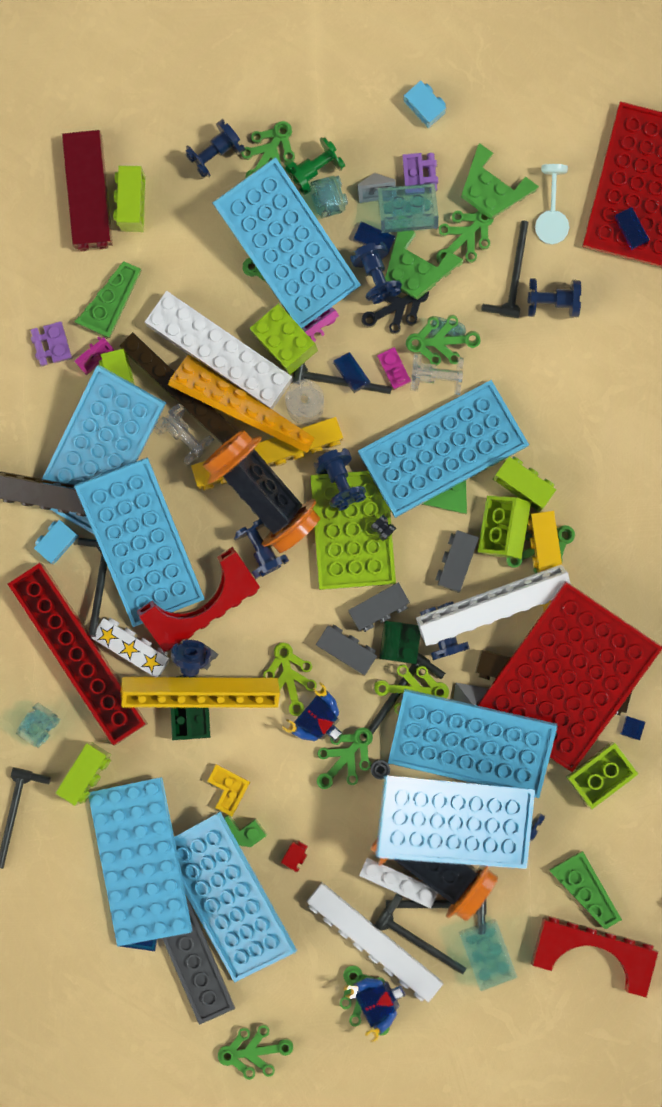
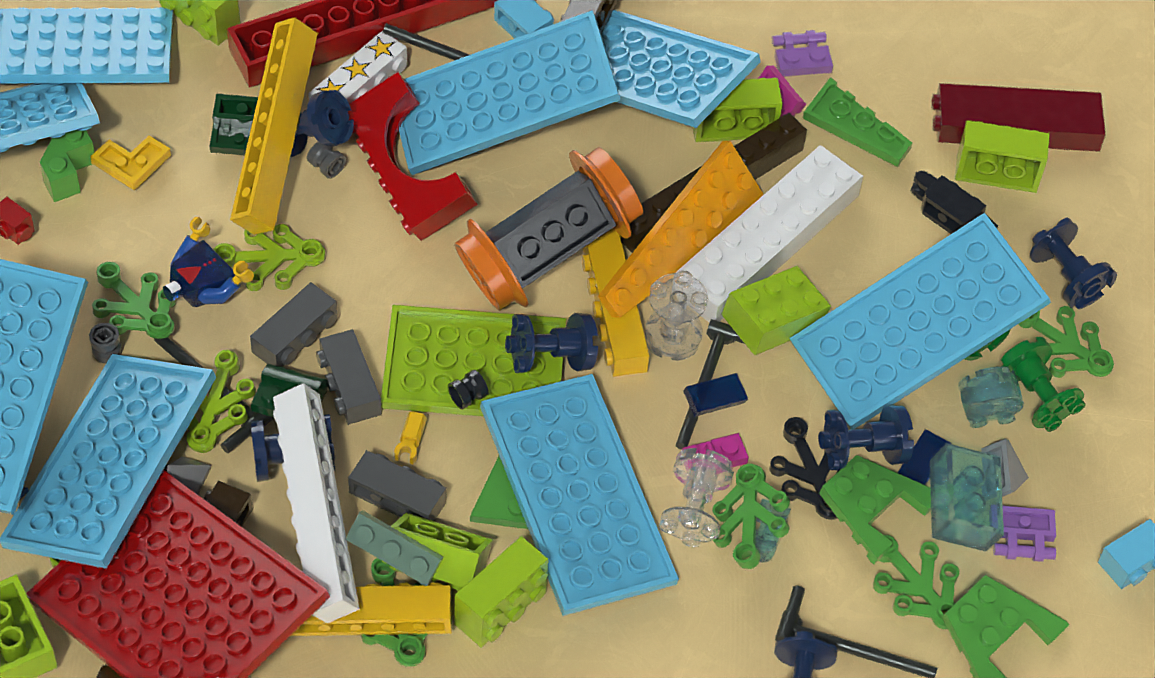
camera: 90 degrees right, 30 degrees down
(174, 230) = (946, 202): none -> black hinge
(179, 429) = (669, 160): clear piece -> none
(264, 555) = (443, 239): dark blue piece -> none
(325, 319) = (791, 357): dark pink plate -> none
(414, 560) = (411, 436): none -> yellow bar
(517, 550) = (394, 548): none -> sand green plate

